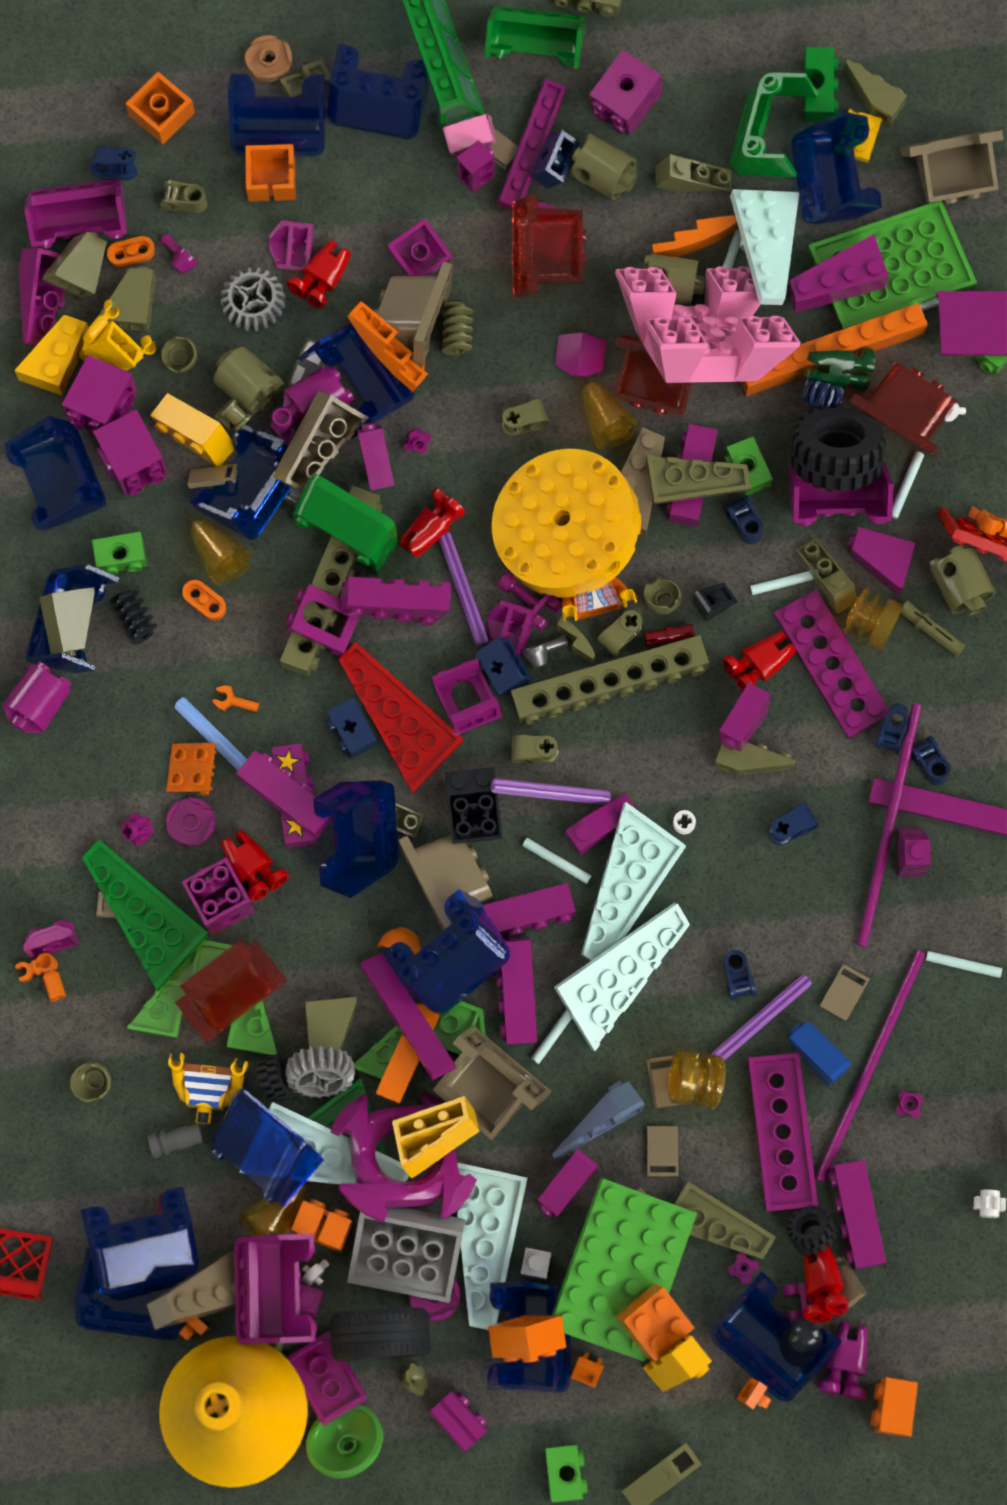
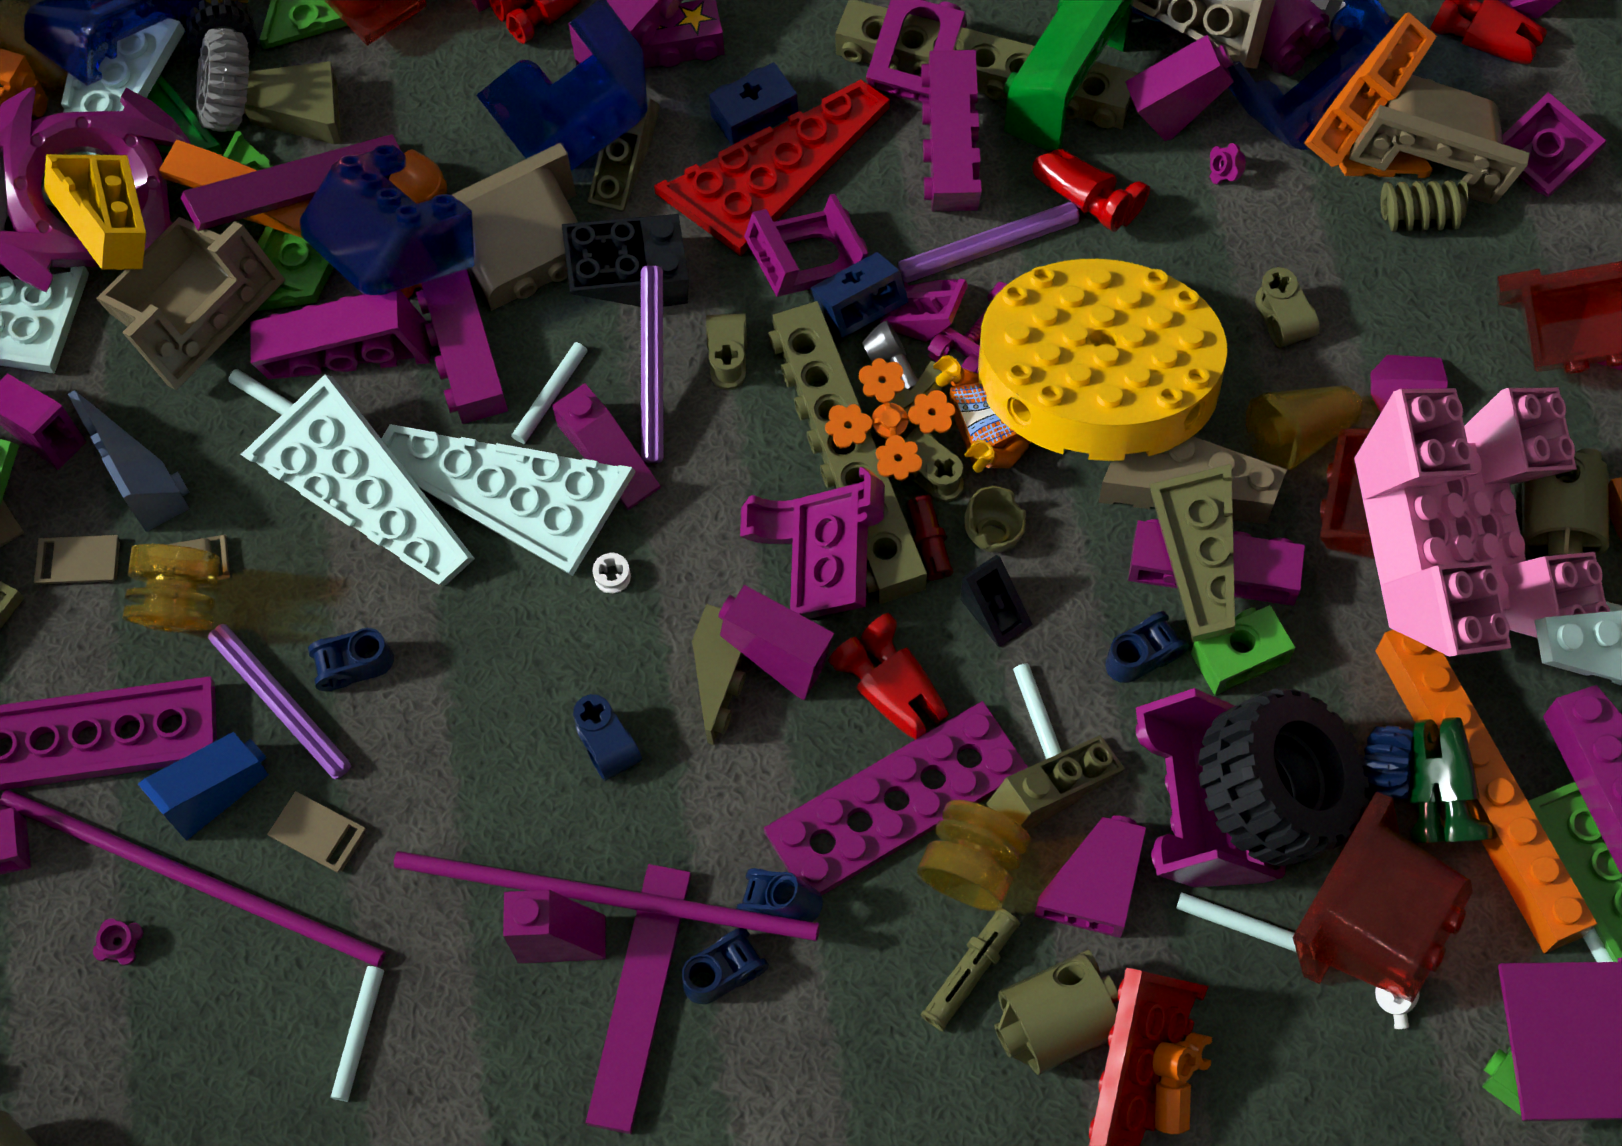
camera: 90 degrees right, 10 degrees down
(600, 648) = (890, 419): none -> orange plant
(677, 692) = (826, 540): none -> magenta piece

